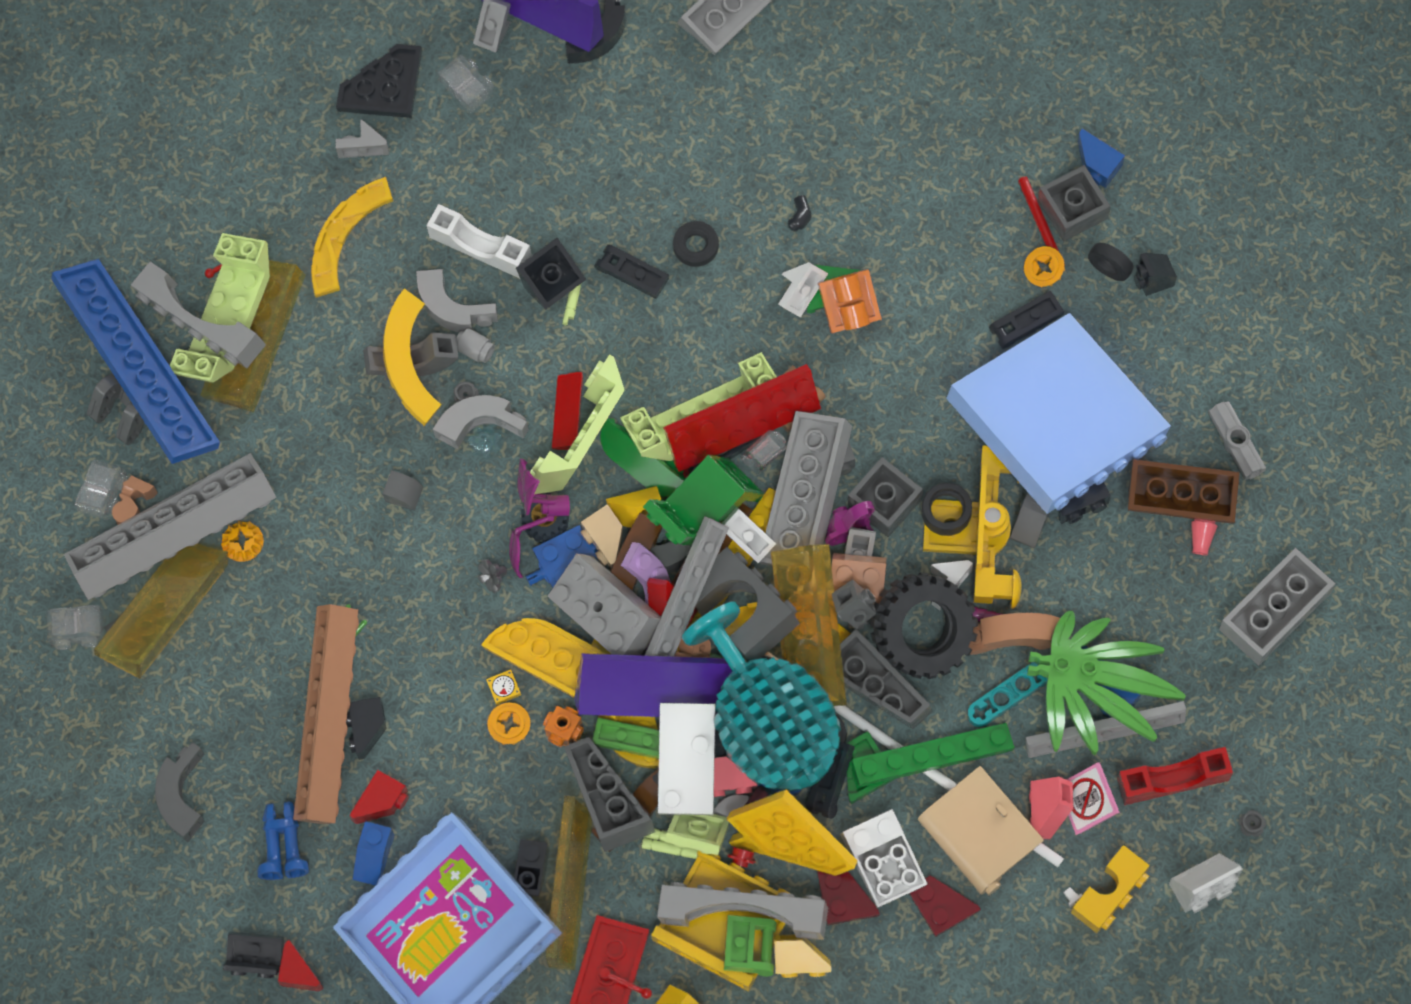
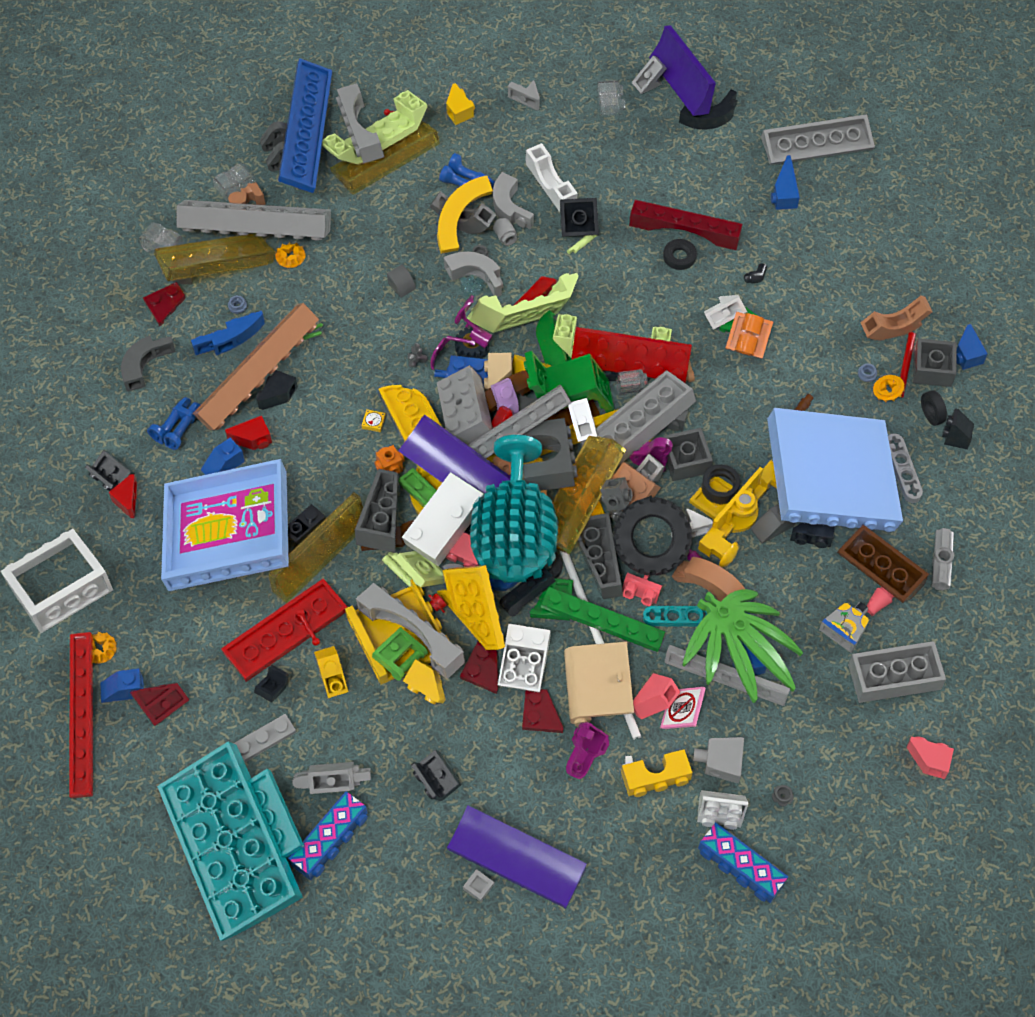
camera: 30 degrees right, 10 degrees down
(141, 702) = (164, 302): none -> dark red wing
(225, 642) = (237, 300): none -> sand blue plate
(261, 684) = (236, 332): none -> blue slope
(294, 211) = (458, 106): none -> yellow slope
(338, 227) = (477, 130): yellow tile -> none
(353, 296) = (455, 166): none -> blue piece
(384, 84) = (562, 74): black plate -> none
(503, 713) = (360, 434): light orange gear -> none
(632, 271) = (630, 247): black plate -> none
(711, 189) = (716, 230): none -> dark red arch
(759, 81) = (786, 190): none -> blue slope
(948, 689) = (641, 588): none -> coral hips
(964, 351) = (804, 403): none -> reddish brown animal
(1000, 177) = (886, 326): none -> nougat arch
(1007, 254) = (867, 368): none -> sand blue plate
(1023, 924) = (581, 759): none -> magenta piece
(1027, 319) = (856, 409): black plate -> none
(1127, 352) = (906, 467): none -> light grey beam
(1154, 782) = (770, 739): red arch -> none
(1165, 826) = (722, 758): none -> light grey torso
(1190, 586) = (846, 625): none -> torso
(1263, 926) = (743, 863): none -> blue brick
(1371, 679) = (931, 757): none -> coral slope

